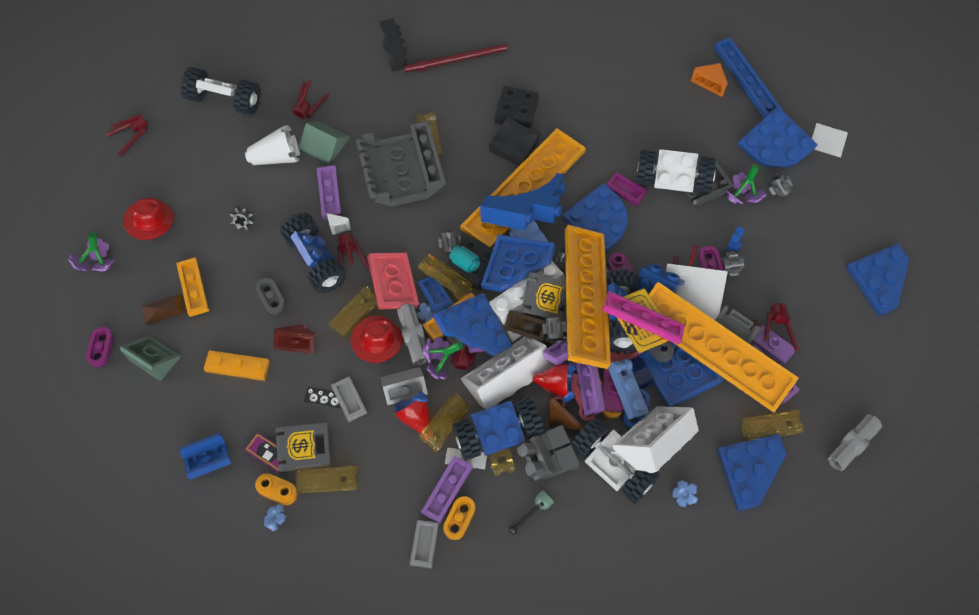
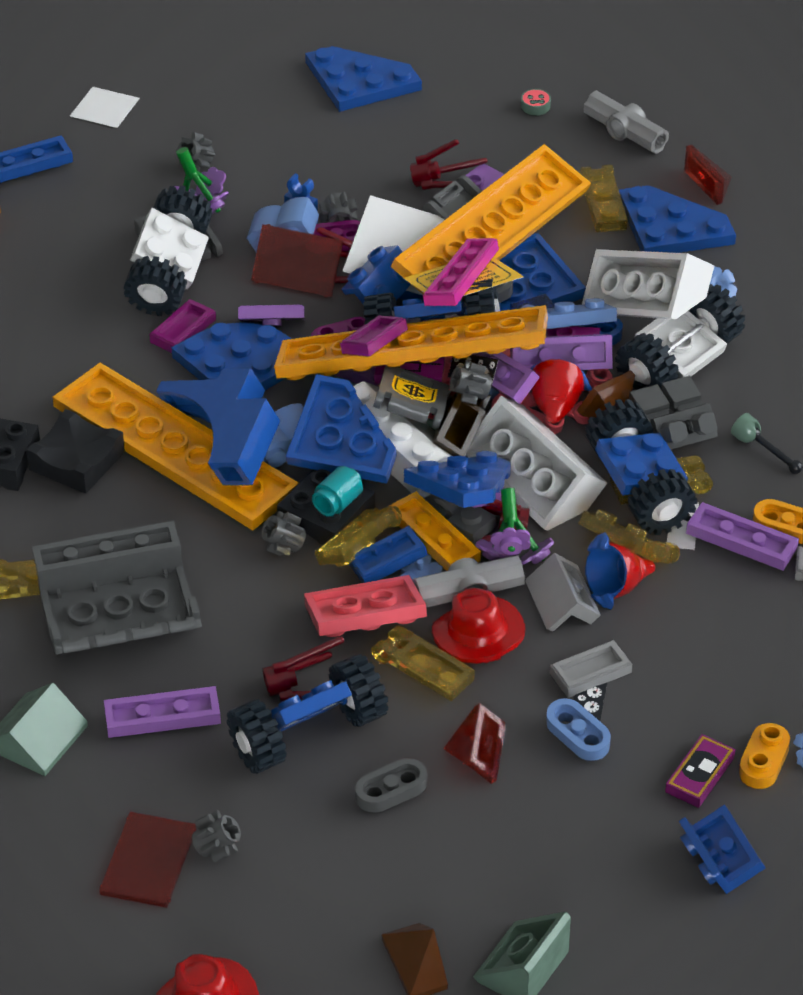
camera: 90 degrees left, 20 degrees down
(192, 287) = (369, 908): light orange plate -> none
(236, 365) = (533, 831): light orange plate -> none
(241, 192) = (148, 859): none -> clear red piece
(274, 148) = (57, 788): white cone -> none
(298, 447) = (690, 711): dark grey container -> none
(299, 388) = (580, 731): none -> medium blue plate
(326, 479) = (739, 689): clear yellow plate -> none
(338, 224) = (237, 689): white slope -> none
(587, 272) = (373, 335): none -> magenta tile
(635, 231) = (271, 314): none -> medium lavender plate
(680, 241) = (297, 260): none -> clear red piece
(710, 232) = (294, 214): none -> medium blue brick
(777, 141) = (109, 150): blue plate -> none
(805, 498) = (706, 174): none -> clear red slope
(872, 385) = (535, 102): none -> tile

